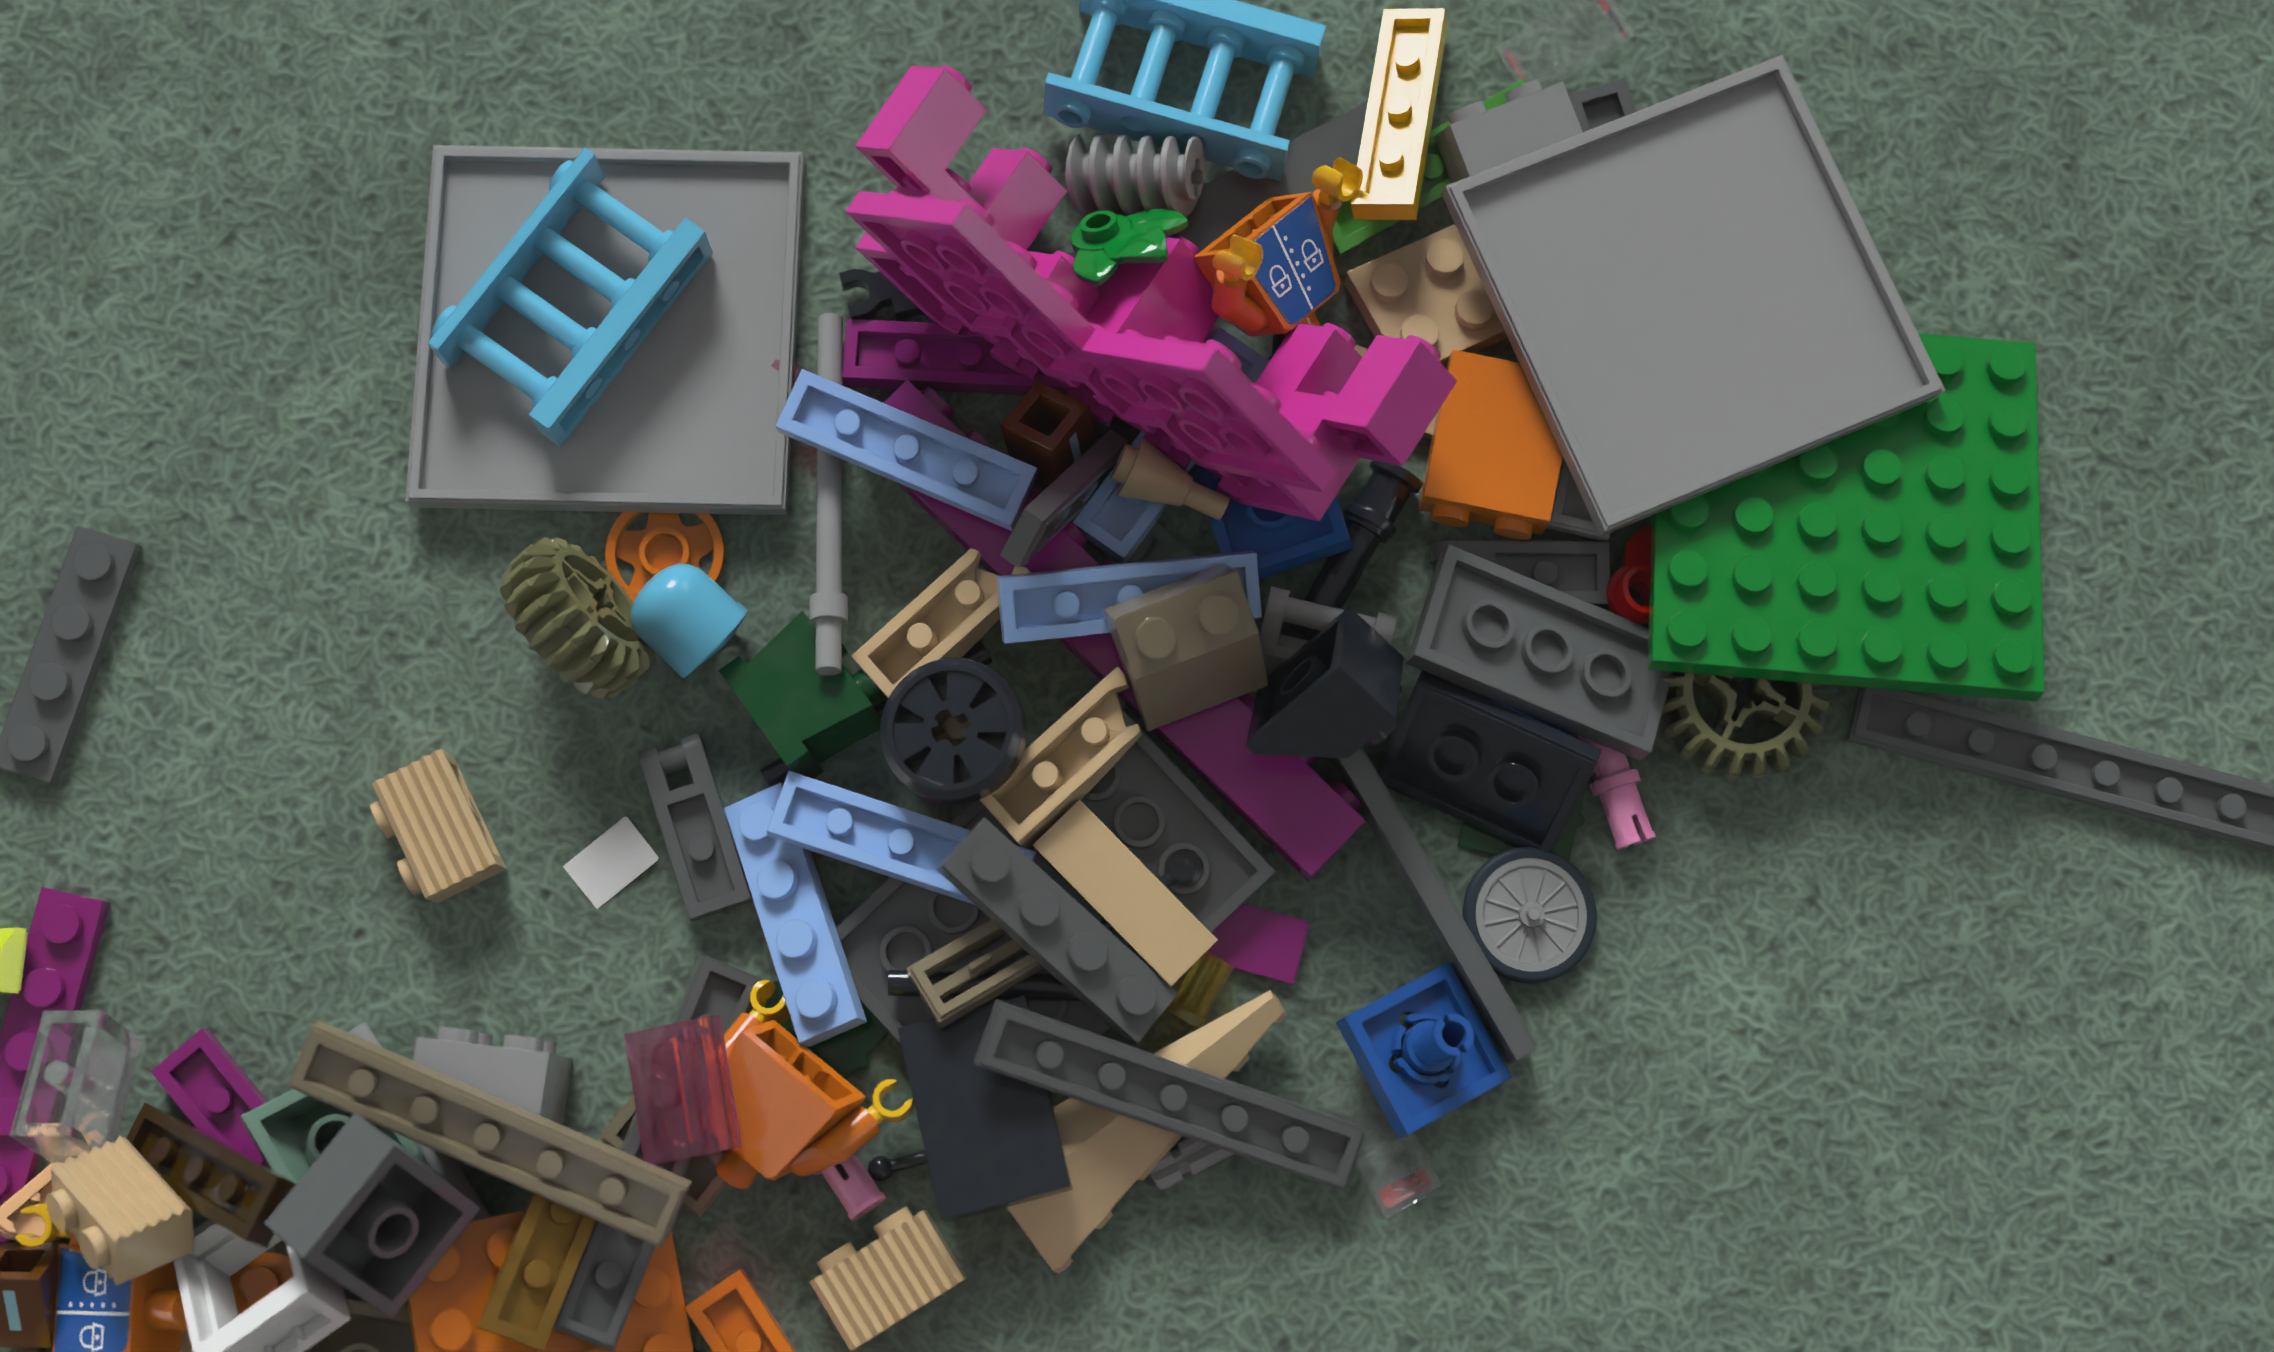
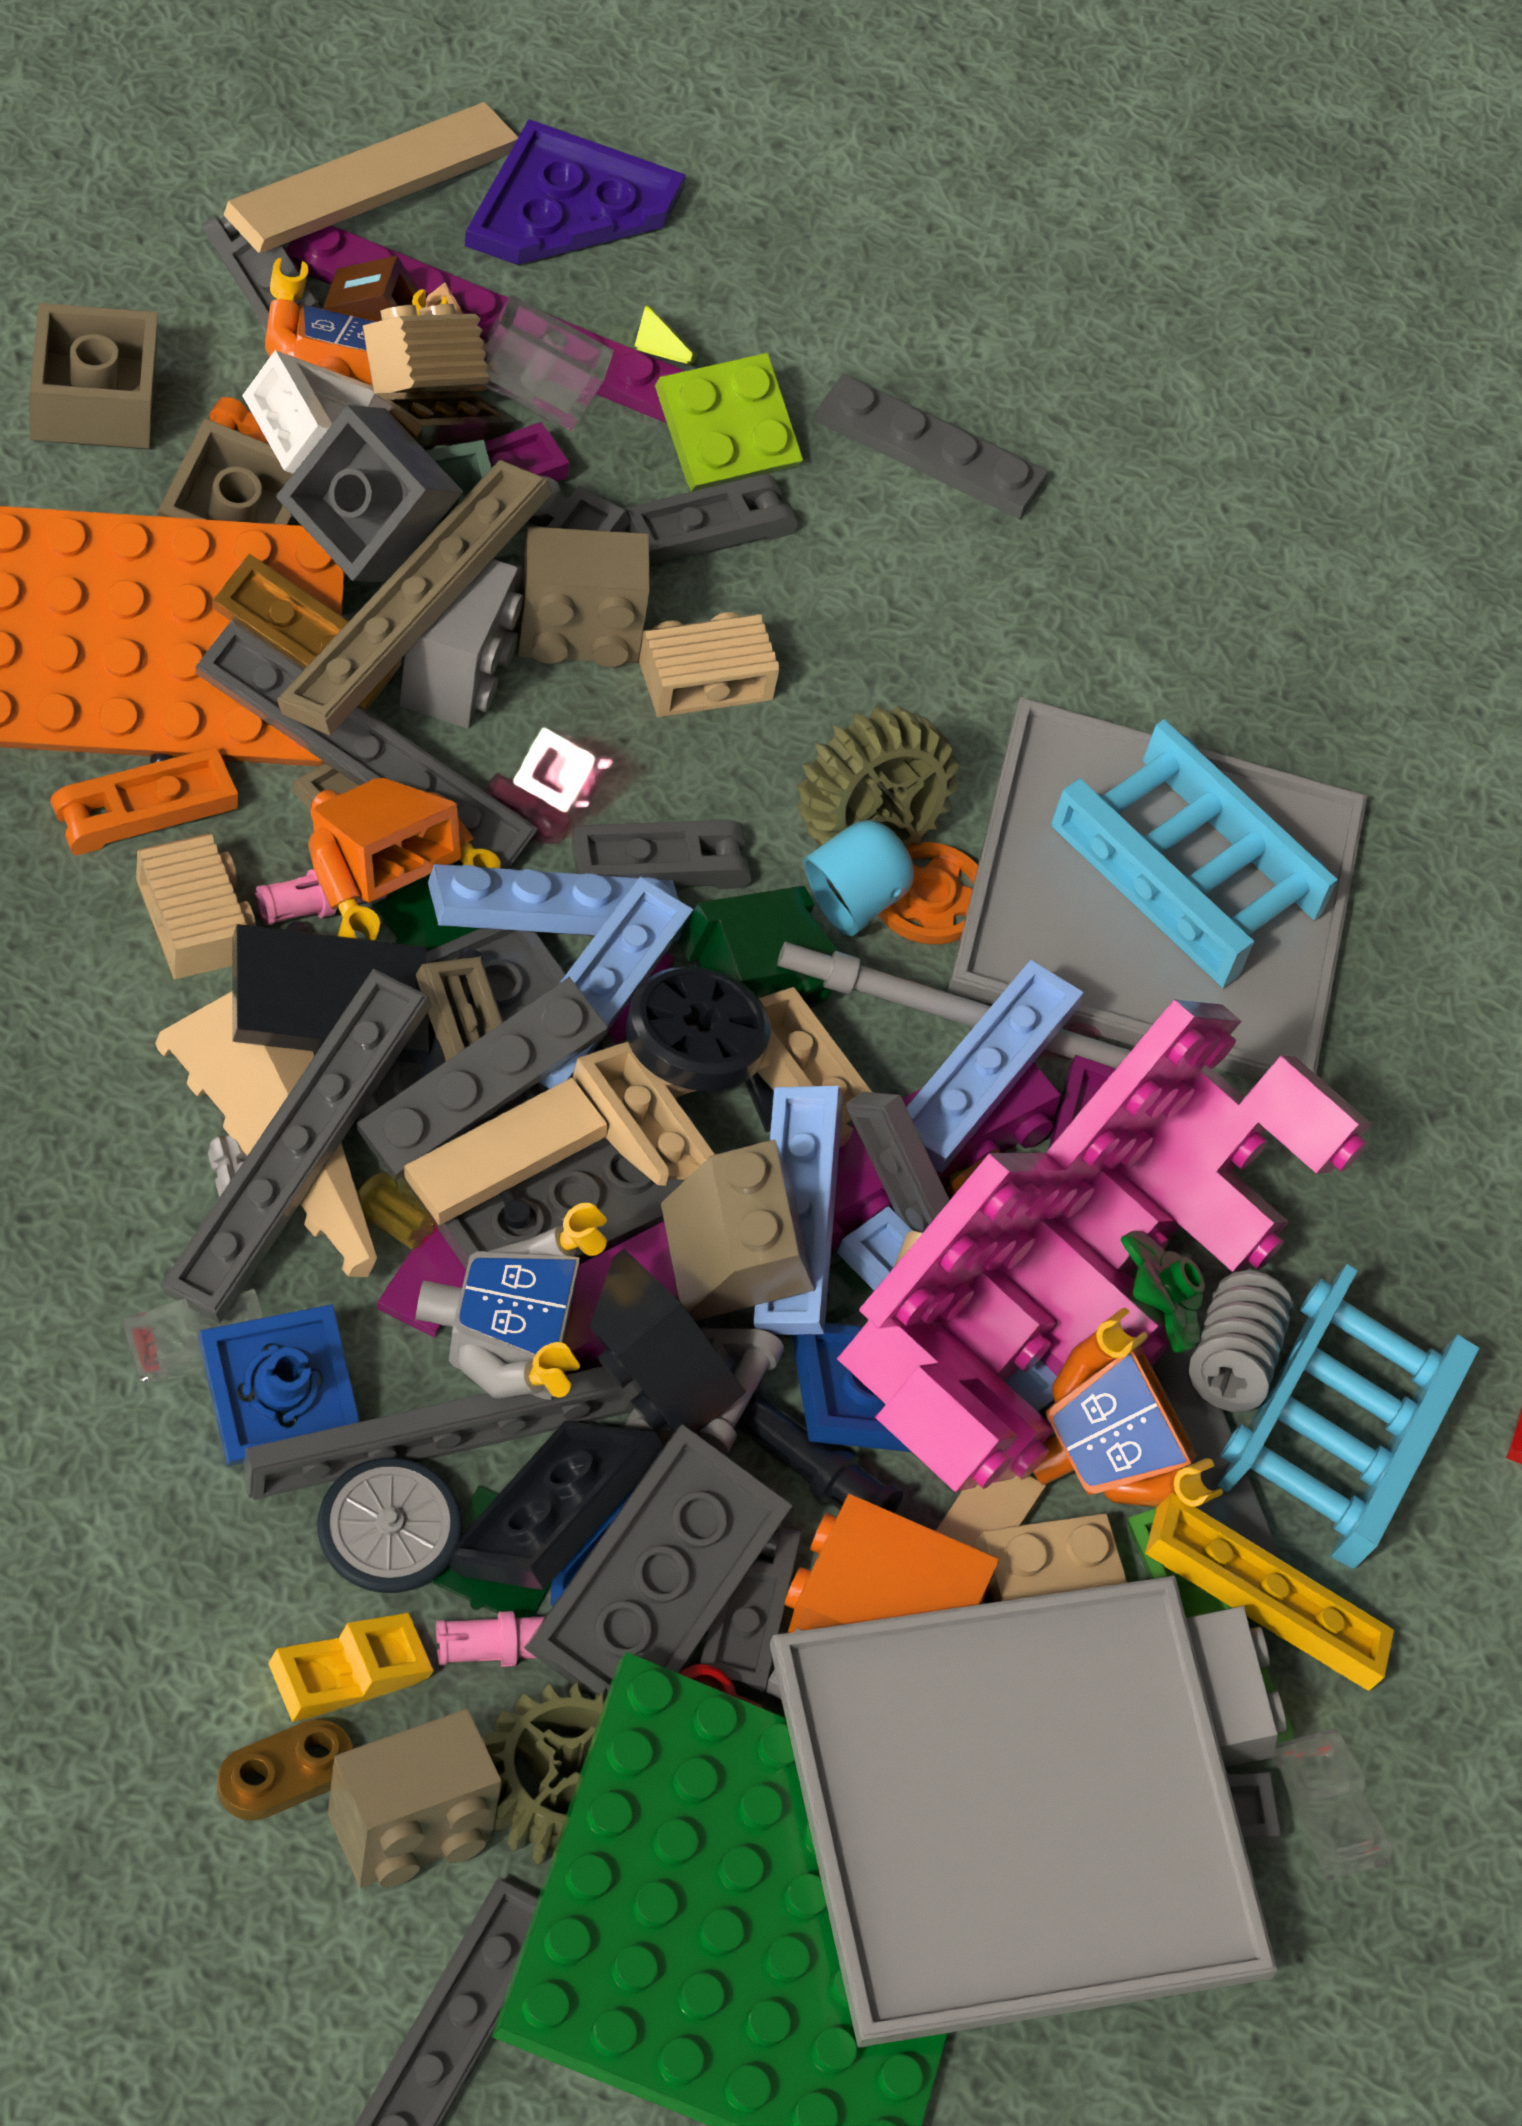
camera: 90 degrees right, 25 degrees down
(97, 871) = (728, 421): none -> lime plate
(236, 867) = (712, 518): none -> dark grey plate
(275, 999) = (579, 511): none -> dark grey plate
(401, 968) = (583, 595): none -> dark tan brick
(611, 862) = (643, 792): white sticker -> none
(630, 942) = (562, 771): none -> brick
(666, 968) = (549, 820): none -> clear pink arm
(682, 1090) = (414, 758): clear pink plate -> none
(1328, 837) = (517, 1309): none -> torso
(1680, 916) = (361, 1664): none -> yellow slope
(1797, 950) = (288, 1769): none -> pearl gold plate
(1831, 820) = (414, 1800): none -> dark tan brick

